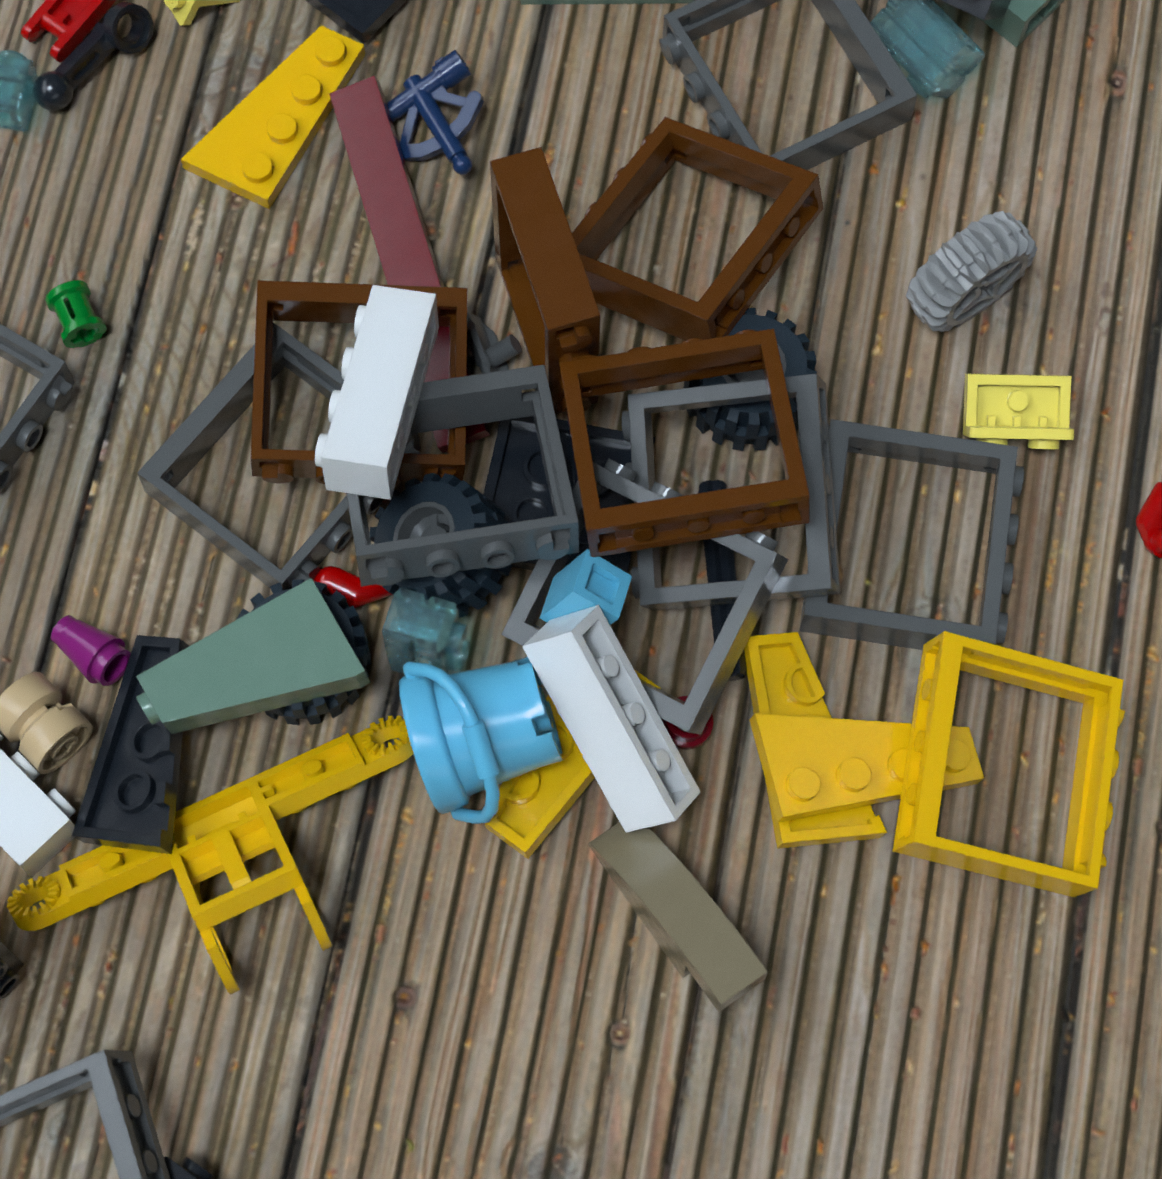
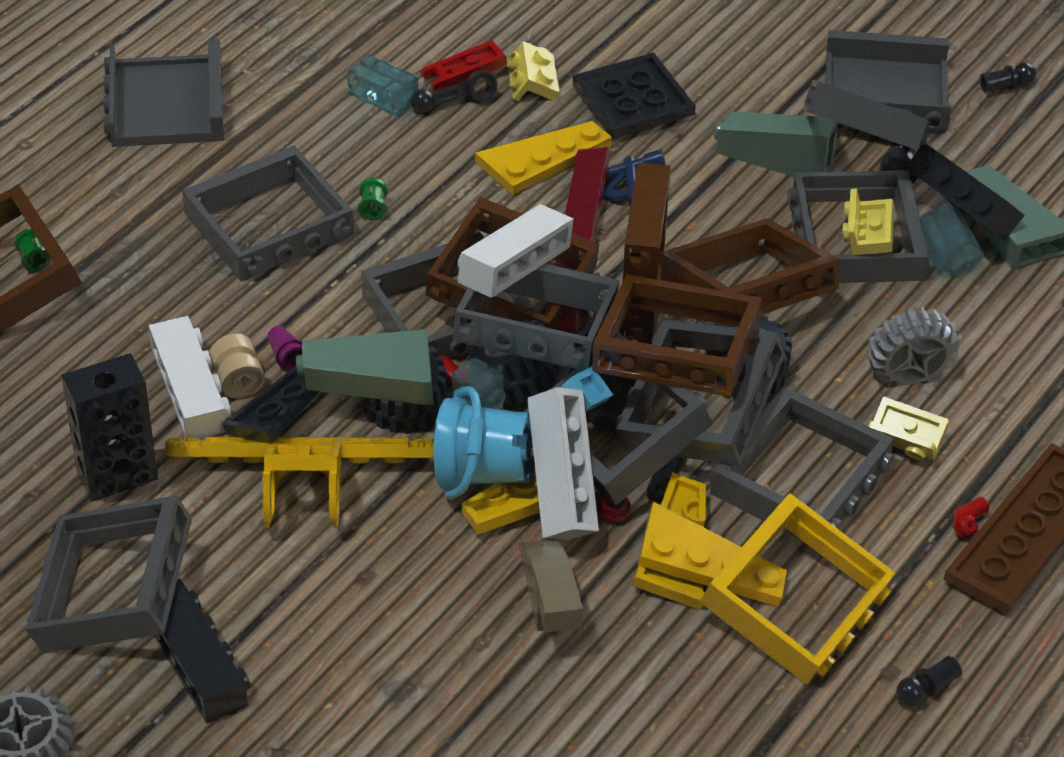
camera: 25 degrees right, 25 degrees down
(822, 77) = (868, 225): none -> light yellow bracket

